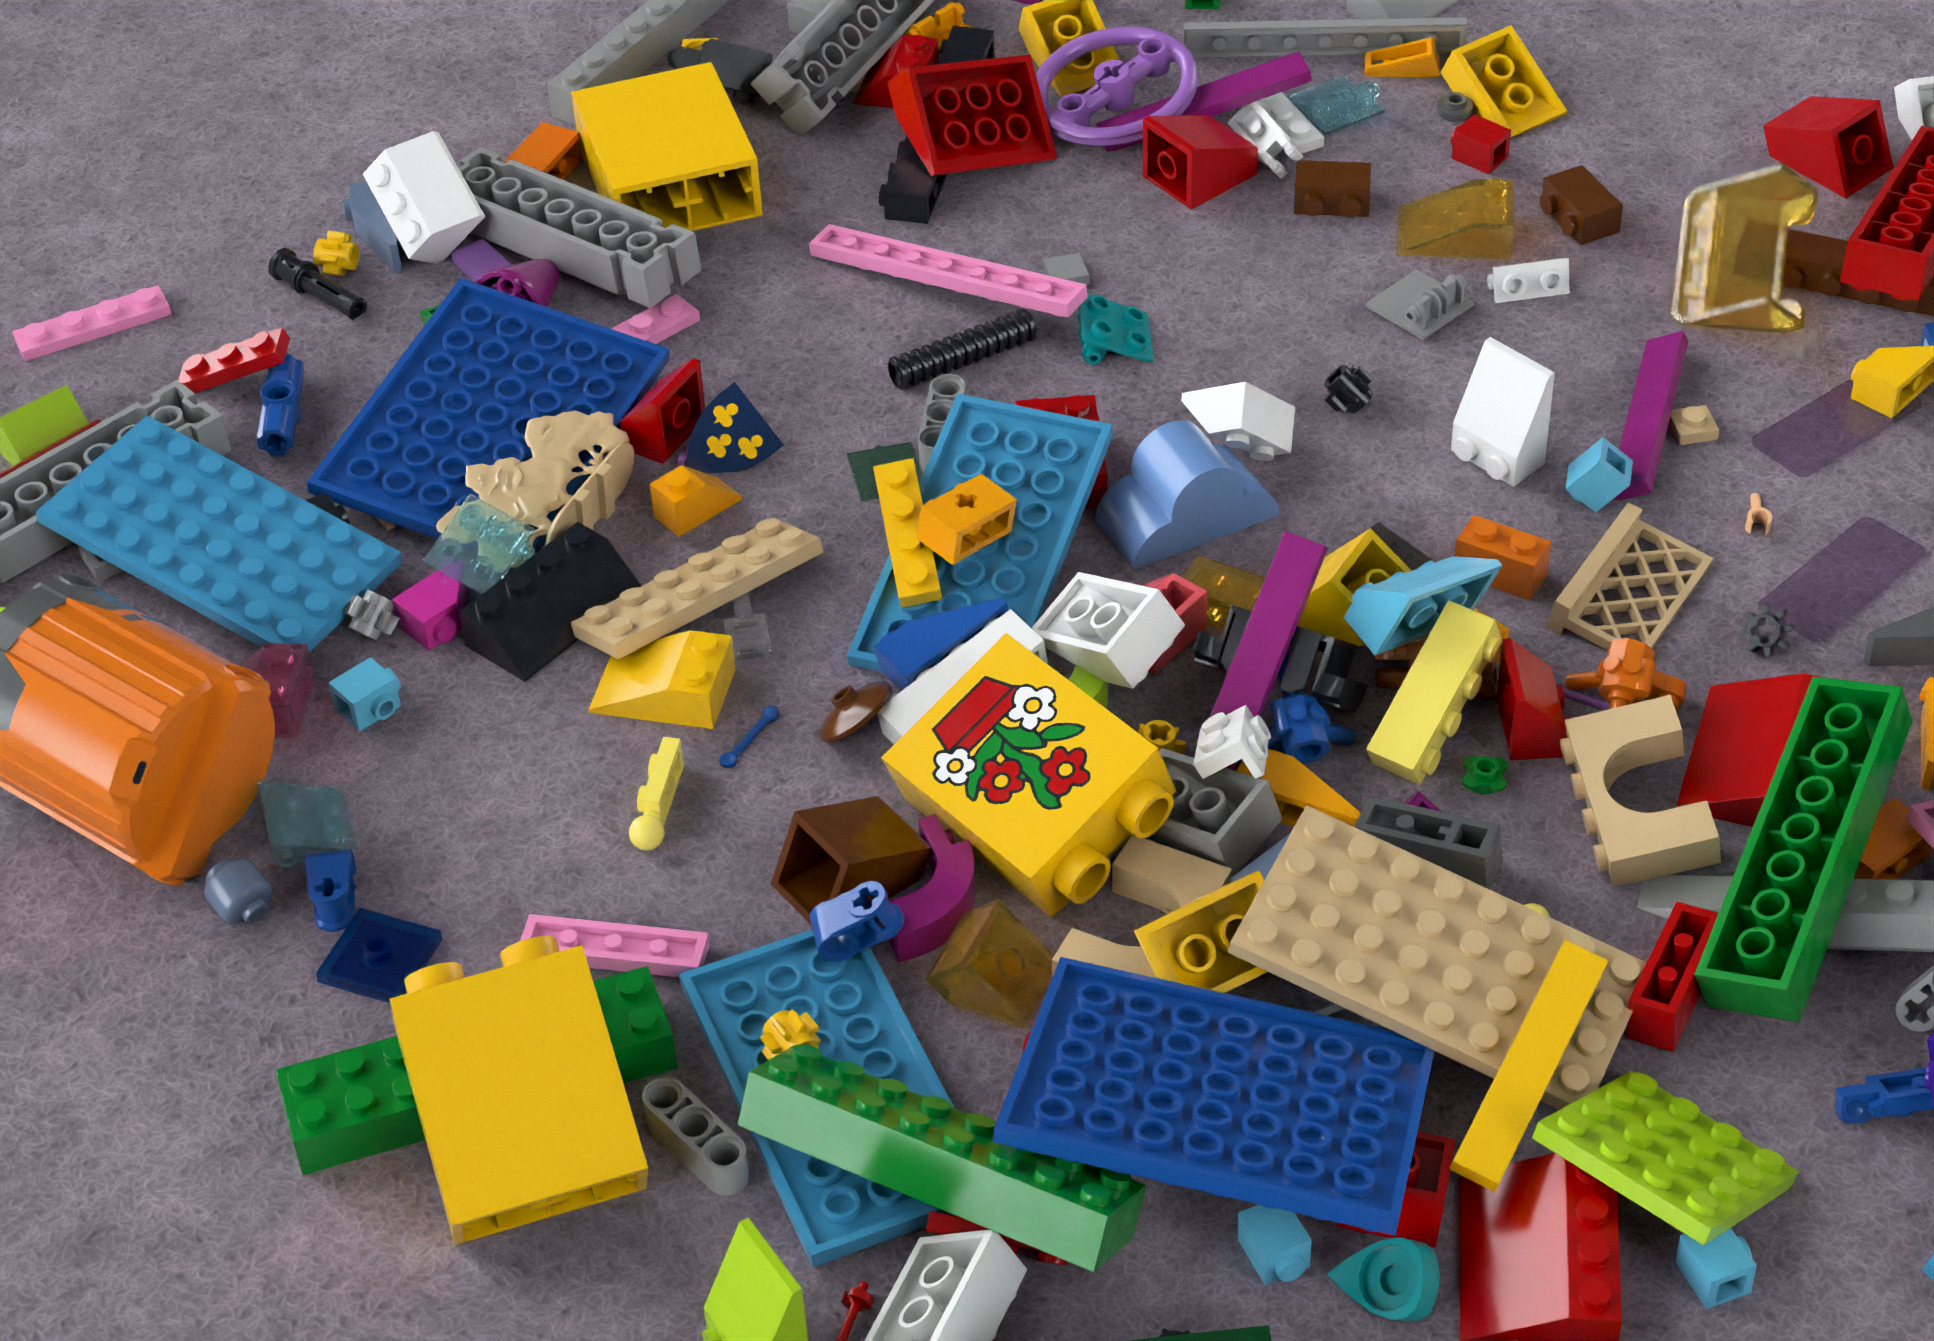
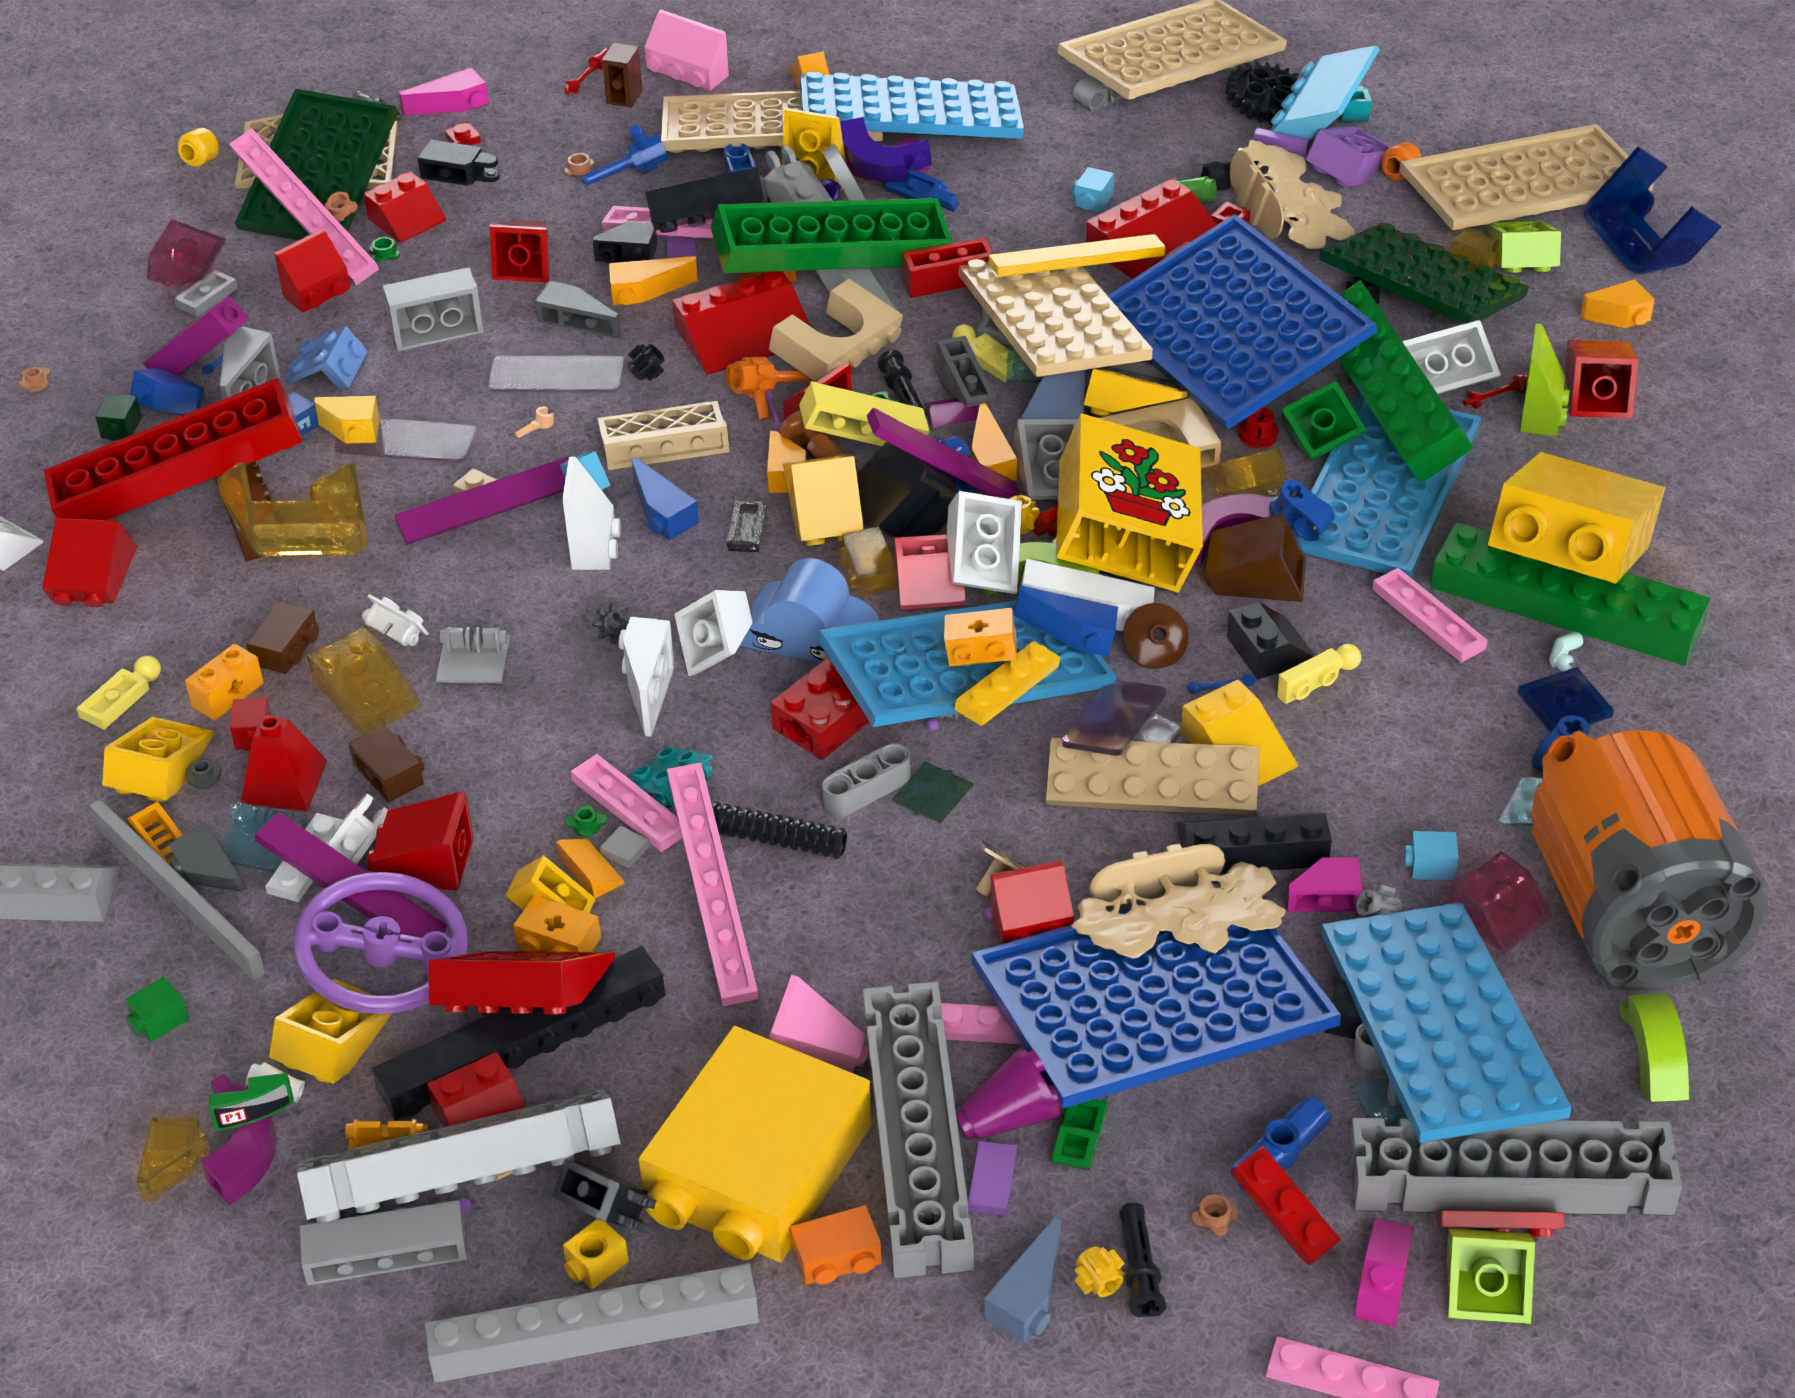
camera: 135 degrees left, 0 degrees up
(115, 370) = (1384, 1272): none -> dark pink slope
(298, 343) = (1215, 1204): none -> nougat plate
(424, 197) = (997, 1224): white slope -> none
(480, 545) = (1273, 866): clear light blue hinge -> none
(689, 498) = (1081, 844): light orange slope -> none
(695, 1136) = (1482, 493): light grey beam -> none
(731, 230) = (817, 1028): none -> bright pink slope
(743, 793) = (1266, 640): none -> black slope
(786, 1030) = (1398, 483): yellow gear -> none
(791, 603) = (1114, 717): none -> clear purple piece
(968, 1065) = (1321, 421): none -> green slope
(1023, 179) = (556, 927): none -> light orange brick
(1059, 197) = (549, 882): none -> yellow slope
(1070, 235) = (588, 866): none -> light orange slope
(1122, 263) = (589, 826): none -> green plate
(1137, 290) = (627, 802): none -> bright pink plate
(1231, 738) = (1009, 448): white bracket -> none
(1238, 347) = (648, 666): none -> white slope
(1333, 54) = (204, 860): none -> dark grey slope
(1395, 125) = (281, 767): none -> red slope
(1411, 602) = (818, 422): medium azure slope -> none
(1510, 813) = (904, 374): none -> black pin
(1511, 508) = (665, 505): none -> slope
(1521, 554) = (703, 476): orange brick -> none
(1552, 142) = (224, 678): none -> light orange brick
(1619, 103) = (119, 693): none -> light yellow plate
(1666, 1155) = (1067, 207): lime plate -> none

